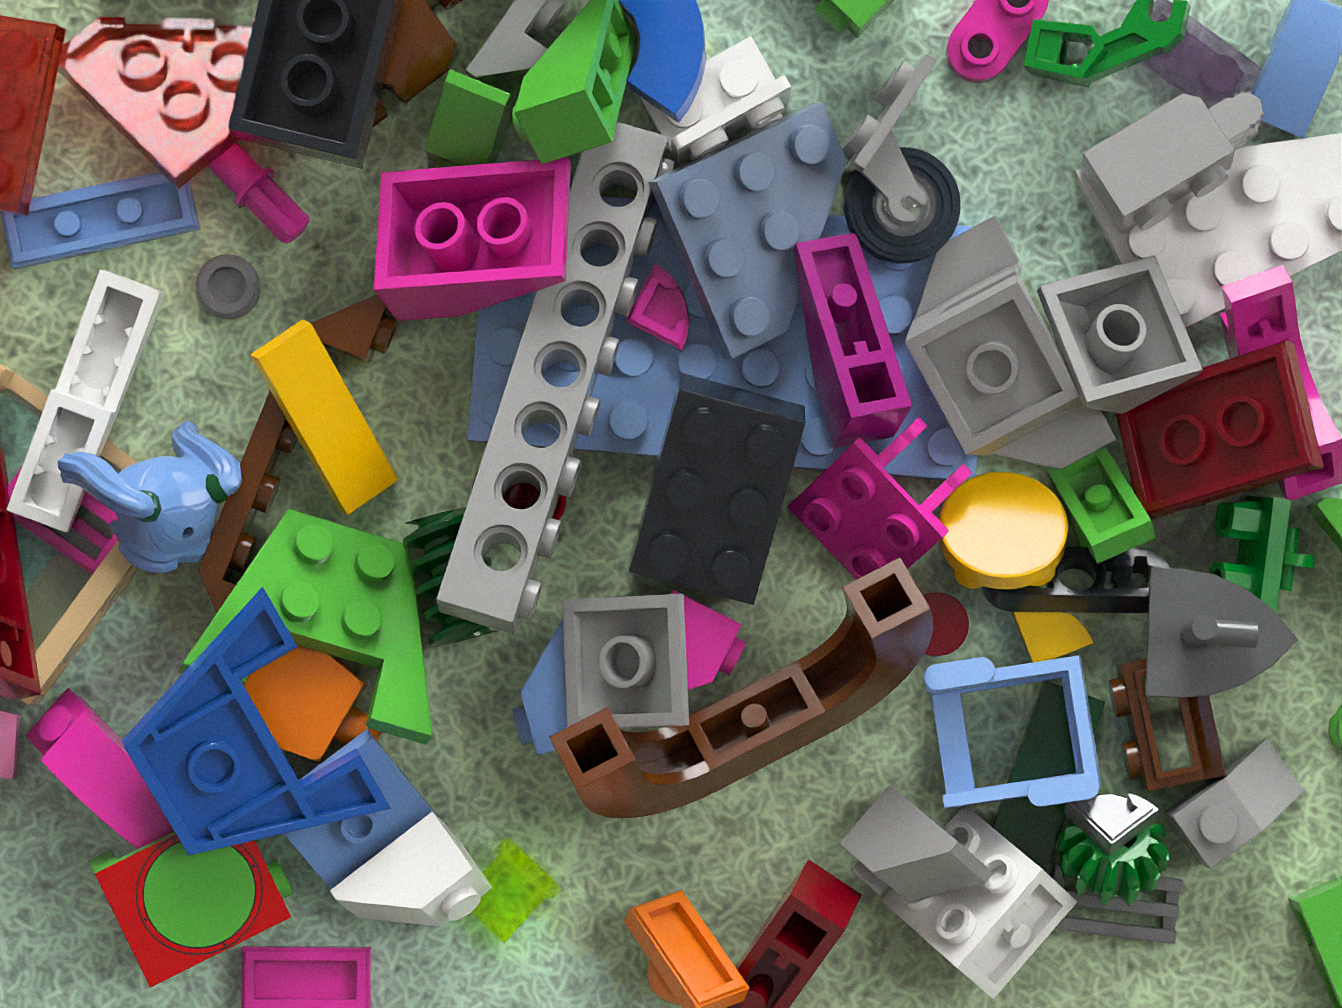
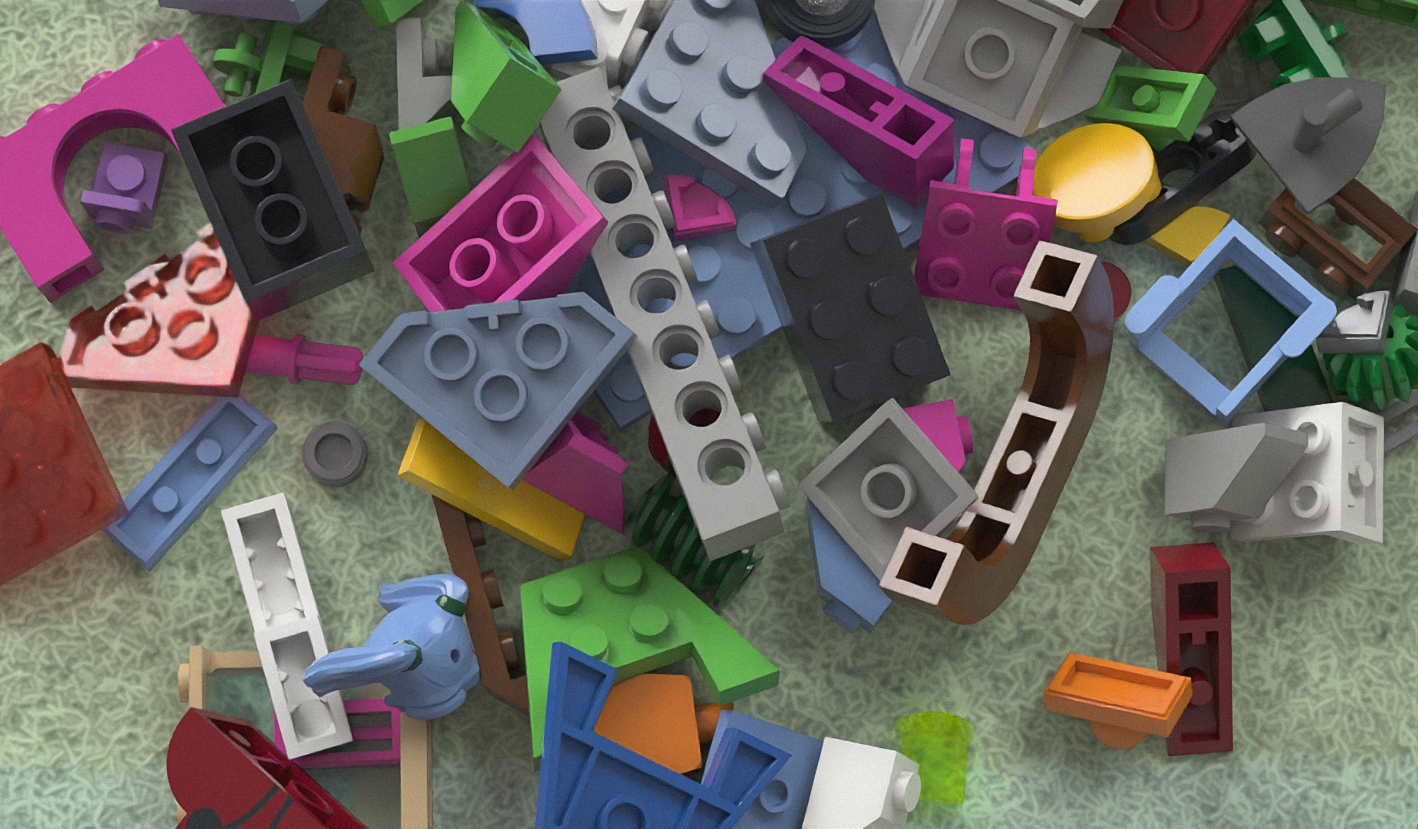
camera: 40 degrees left, 10 degrees down
(386, 338) = (500, 372): none -> sand blue plate
(405, 438) = (583, 472): none -> dark pink slope

